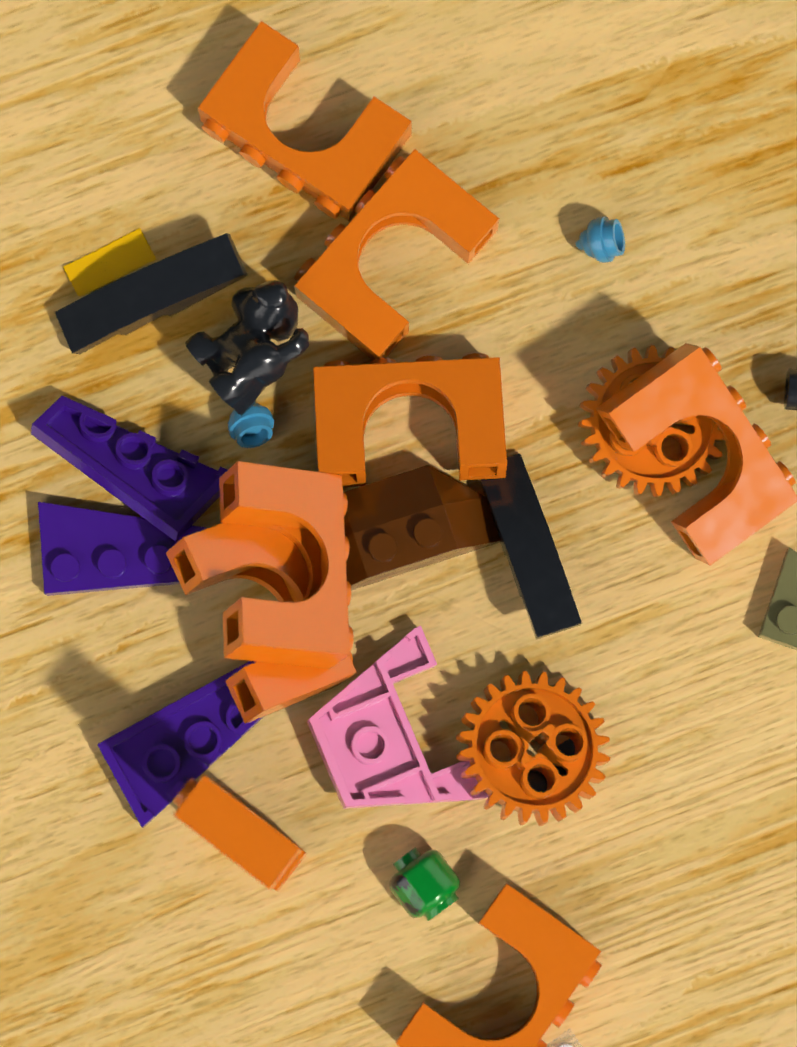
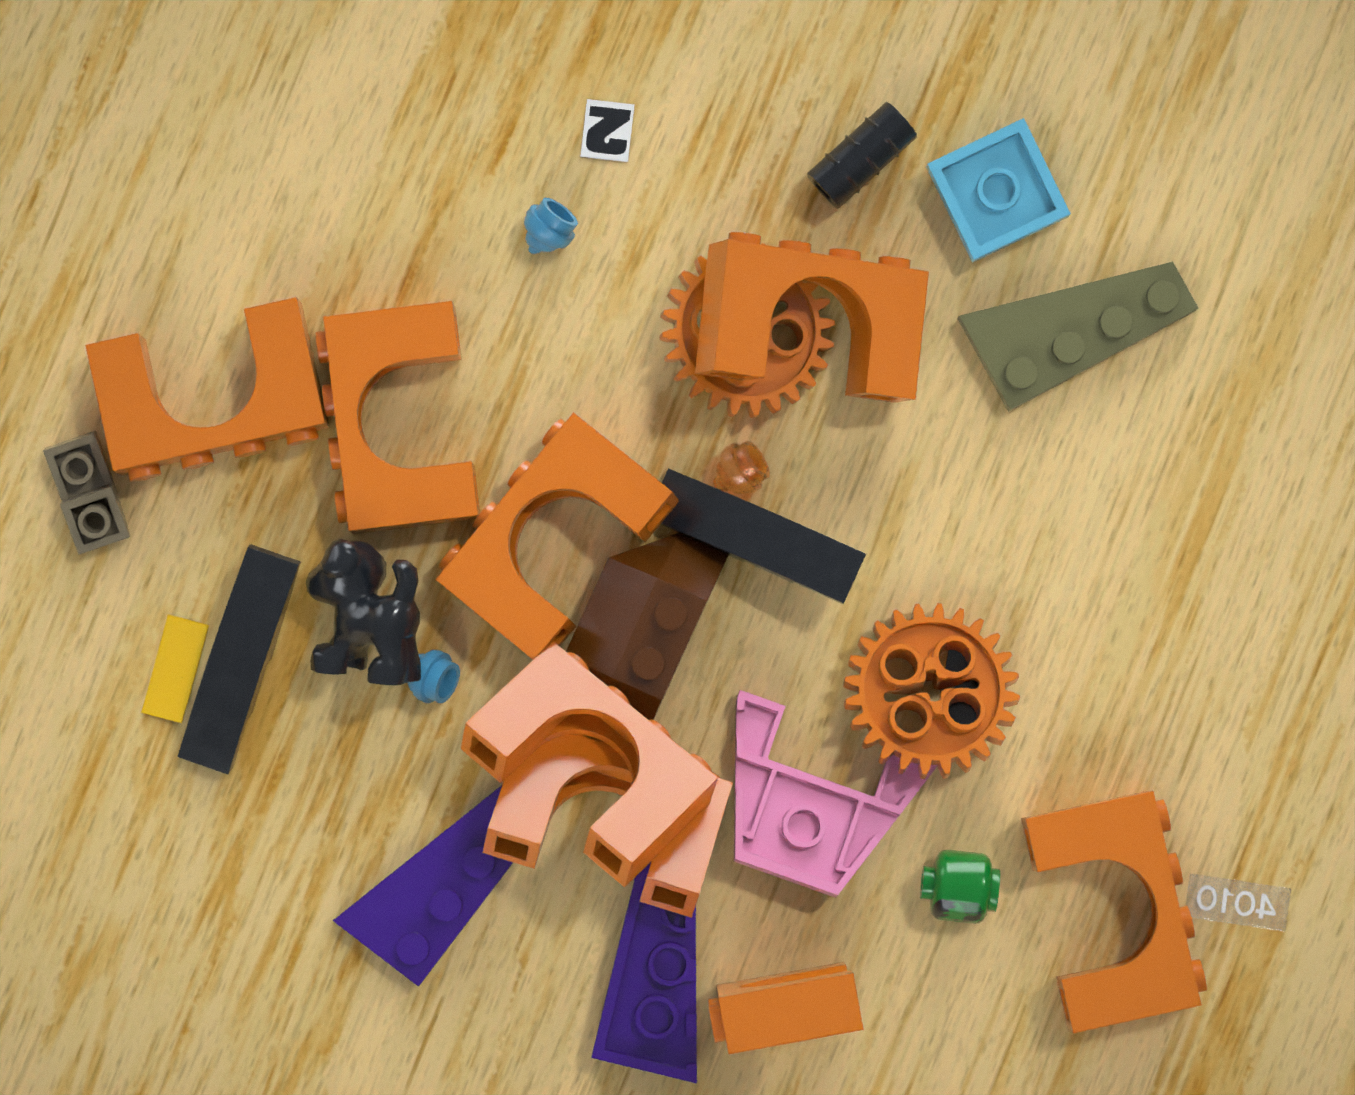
camera: 45 degrees left, 5 degrees up
(147, 477) = (396, 808): dark purple wing -> none
(171, 109) = (87, 492): none -> dark tan slope
(562, 498) = (741, 469): none -> clear orange plate
(697, 223) = (607, 130): none -> sticker

